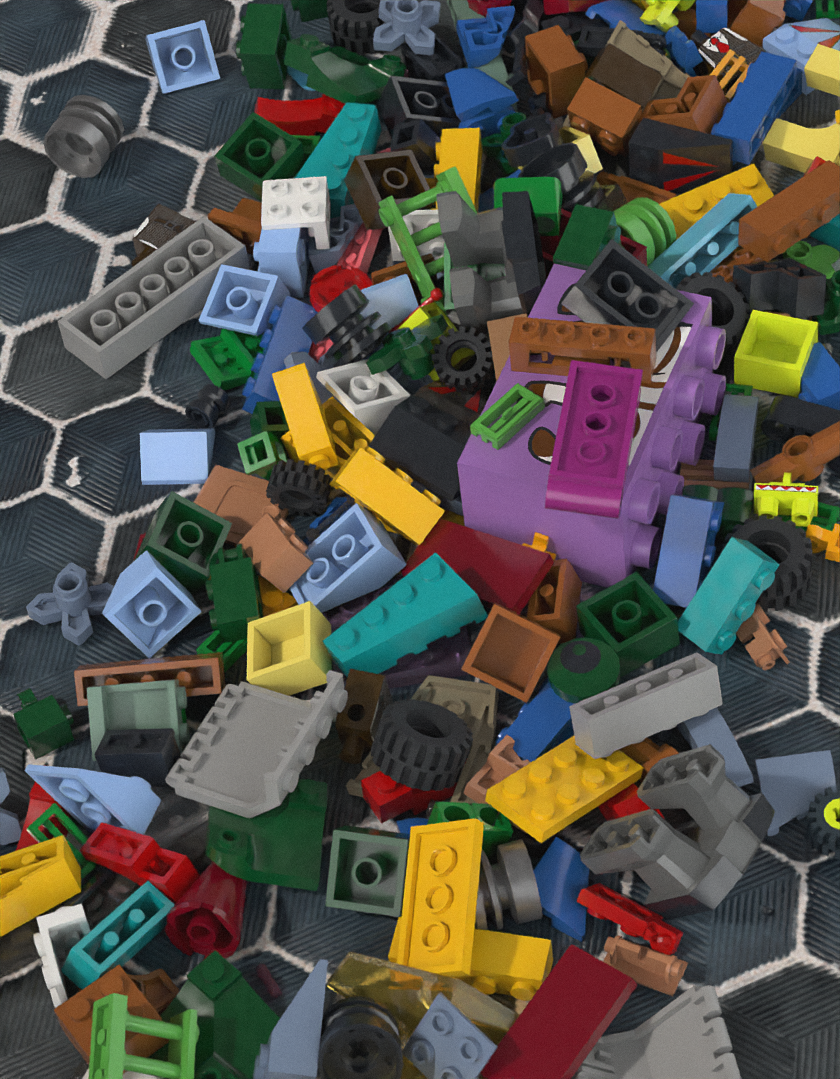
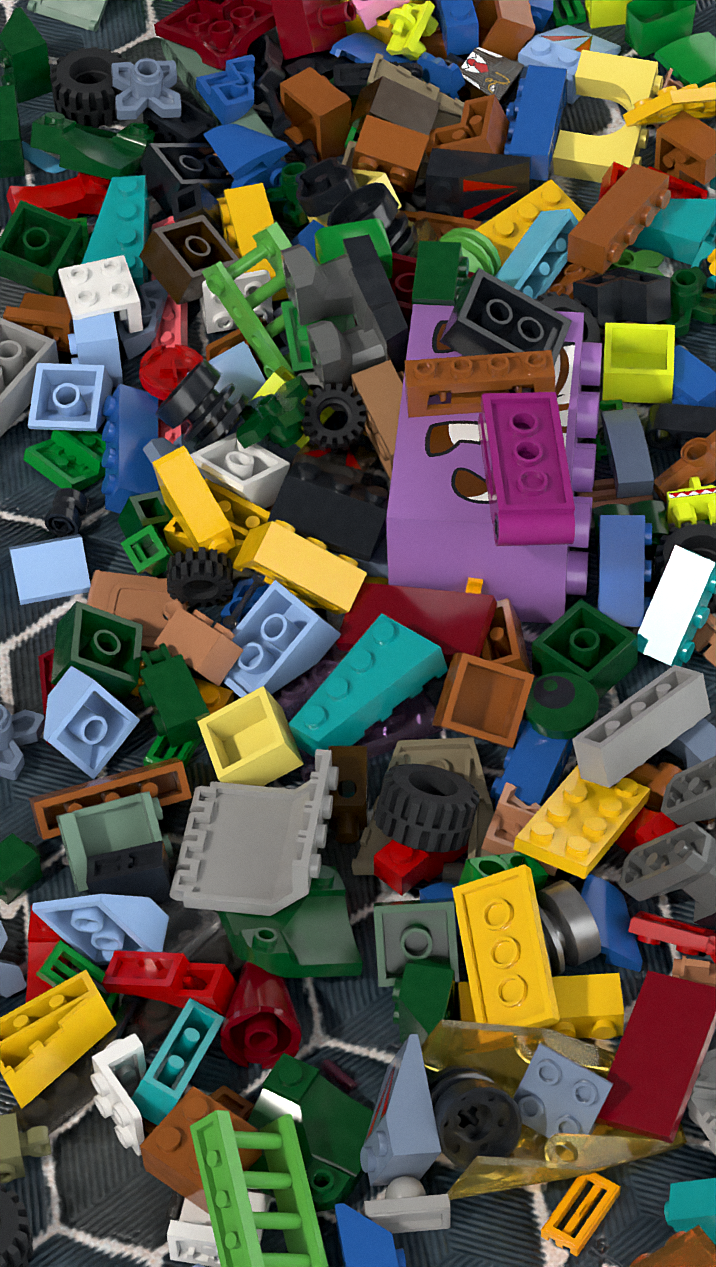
camera: 20 degrees left, 0 degrees up
(360, 927) = (423, 1000): none -> dark green slope
(435, 295) = (282, 358): red hinge -> none
(512, 418) = (412, 483): bright green tile -> none
(737, 64) = (503, 84): light orange tile -> none

